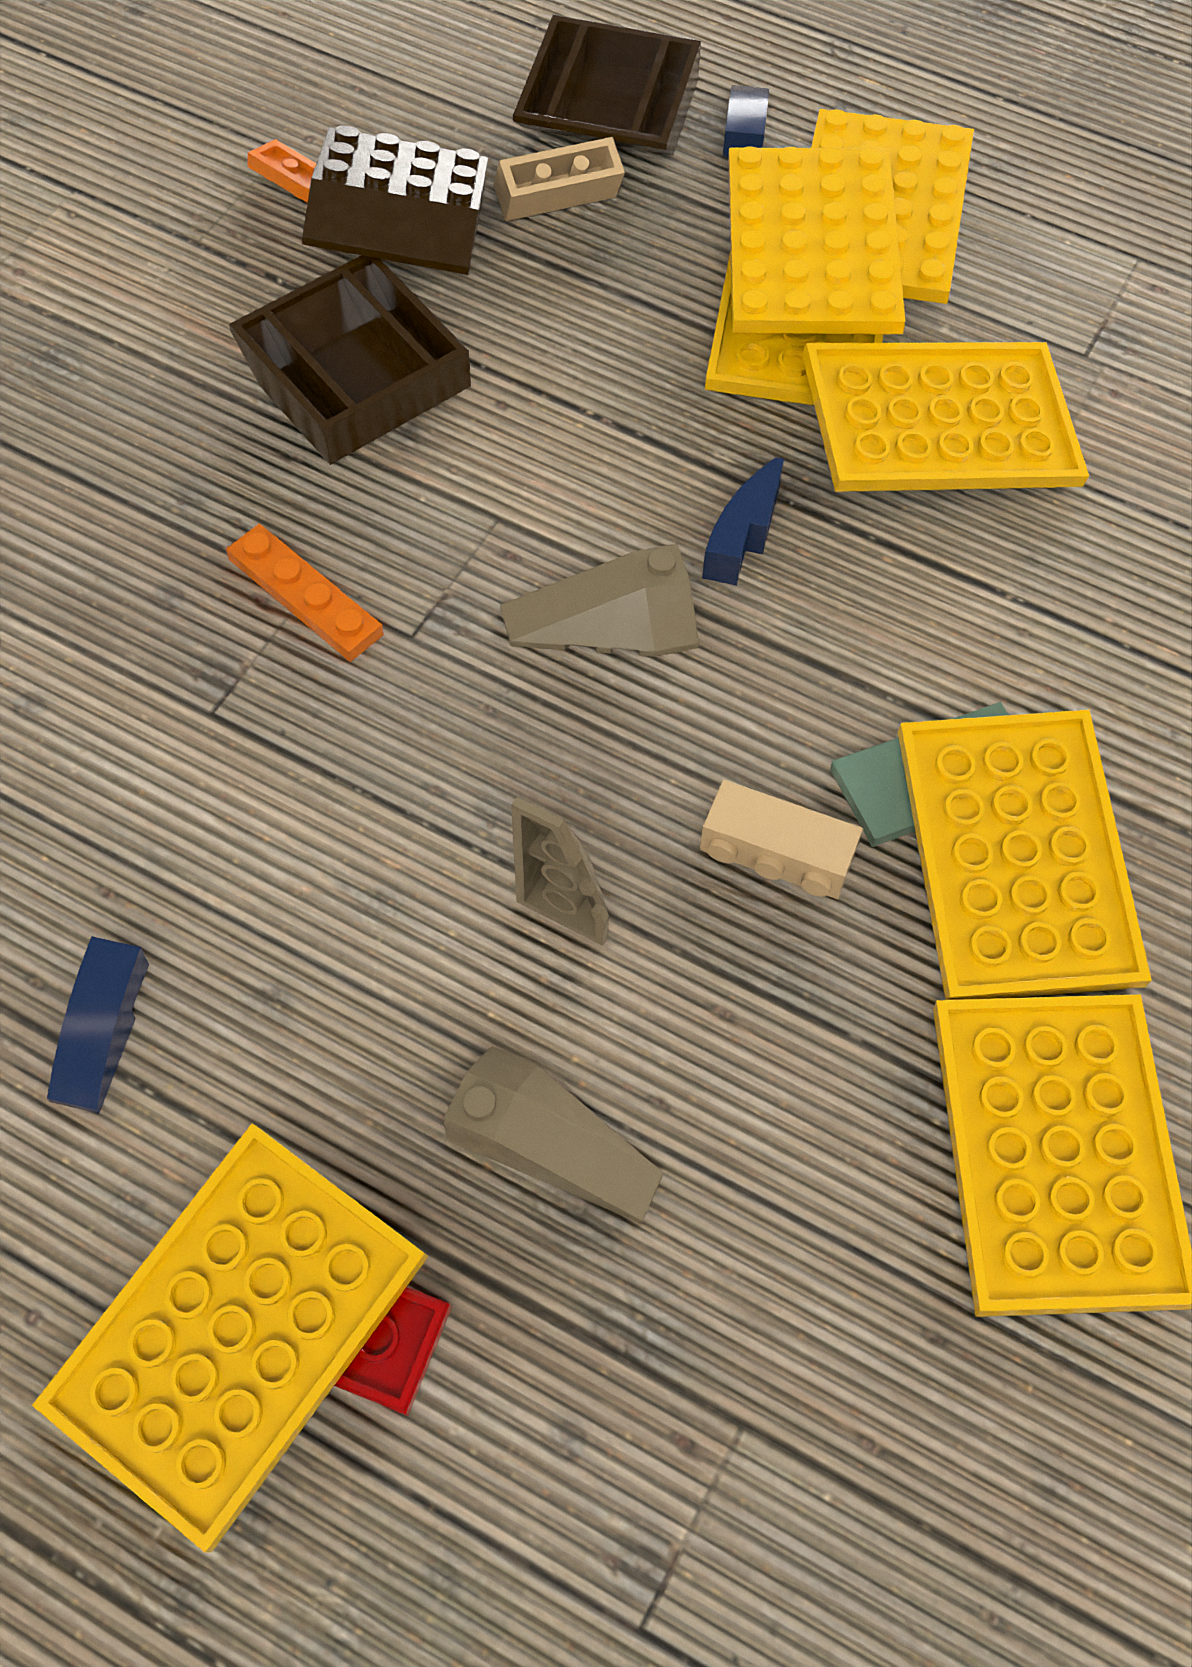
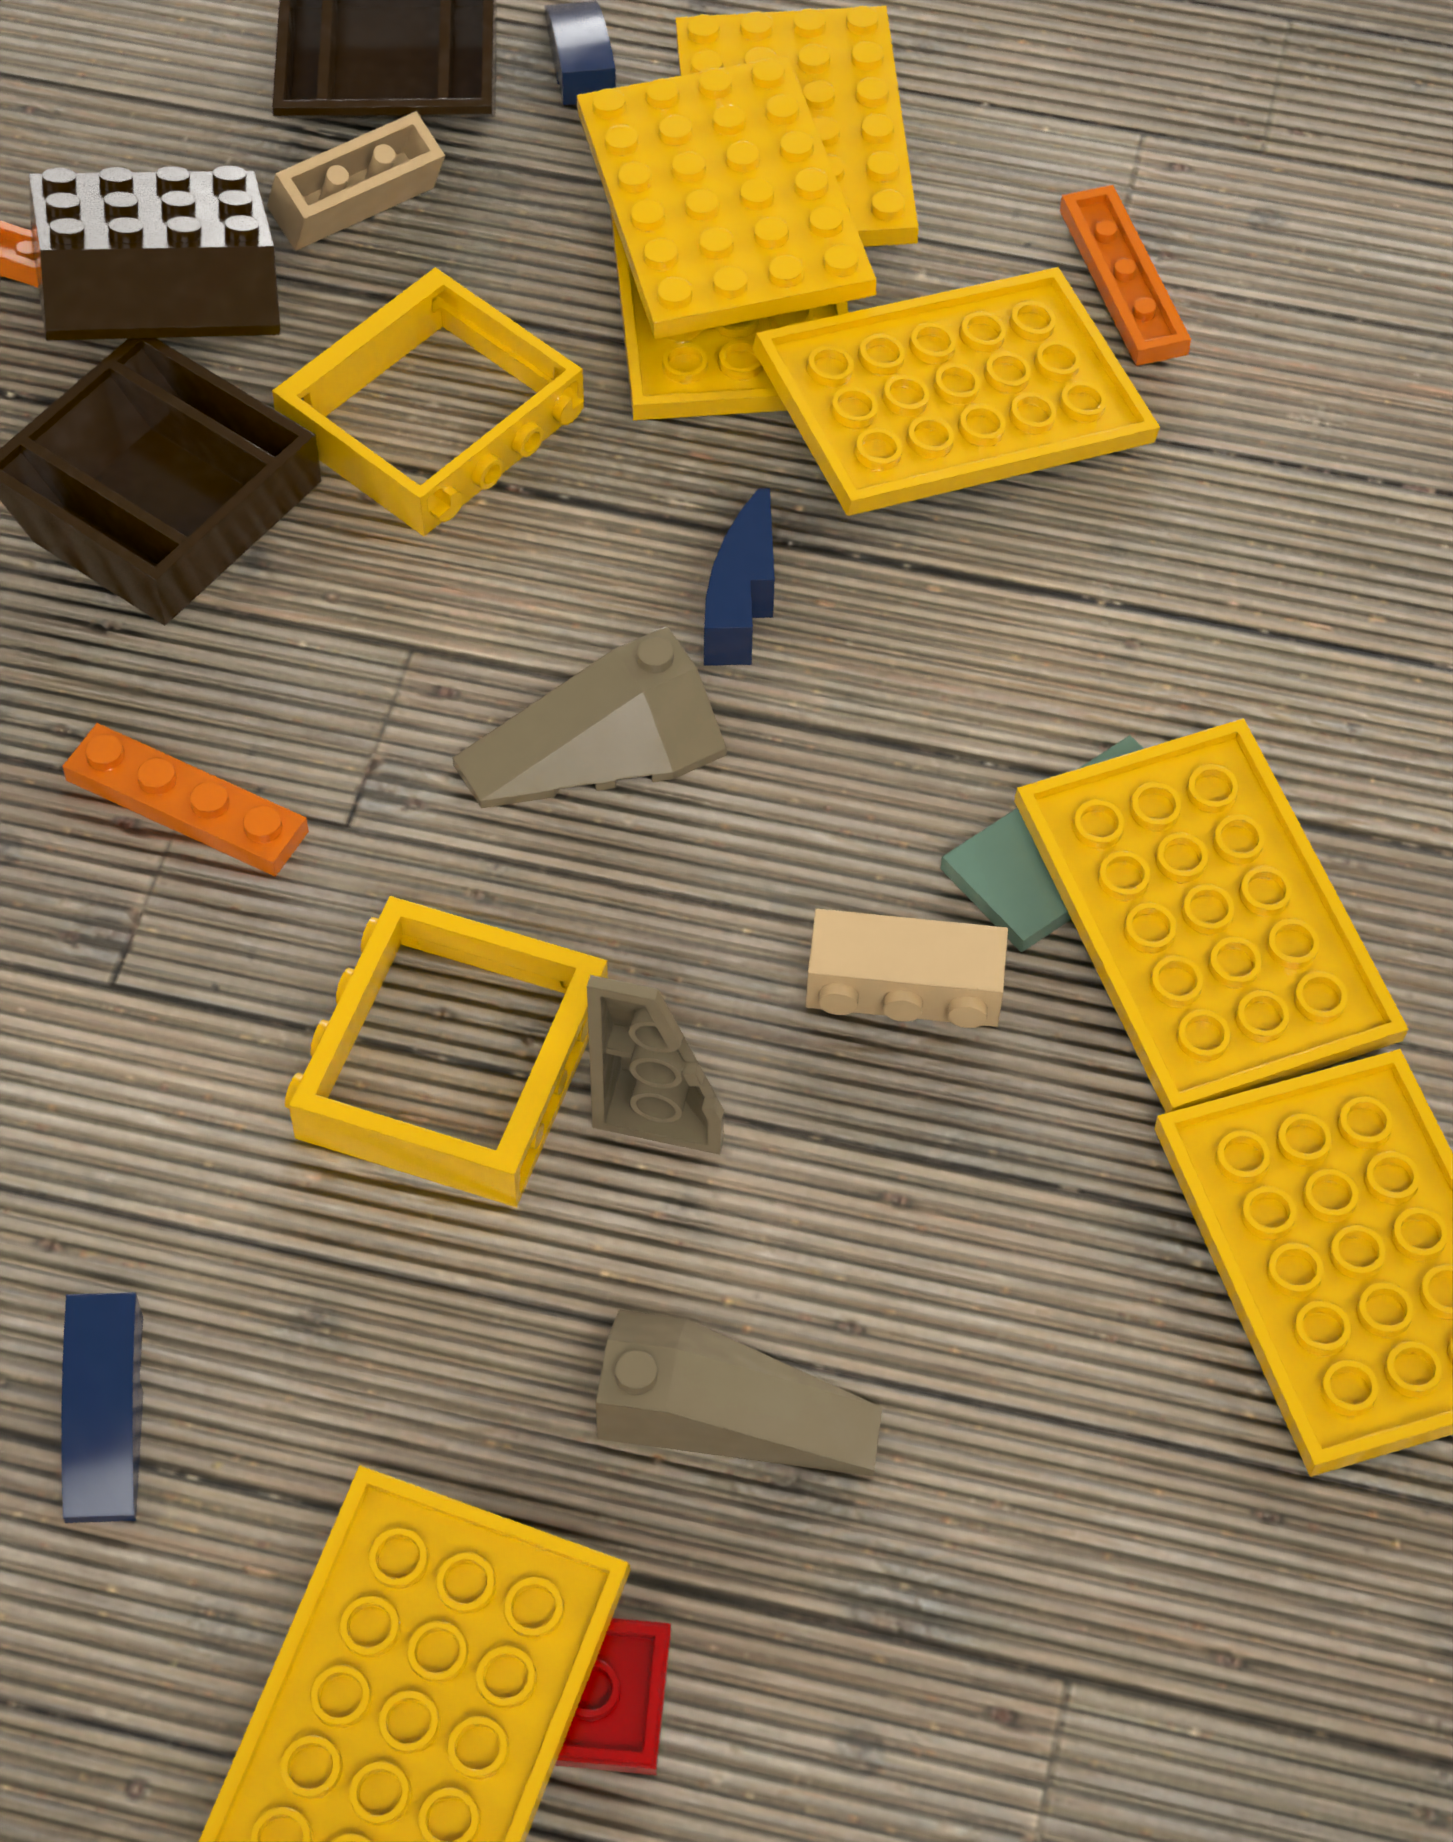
camera: 15 degrees left, 5 degrees down
(480, 874) = (414, 1149): none -> yellow window
(542, 297) = (389, 336): none -> yellow window
(1095, 360) = (1125, 275): none -> orange plate

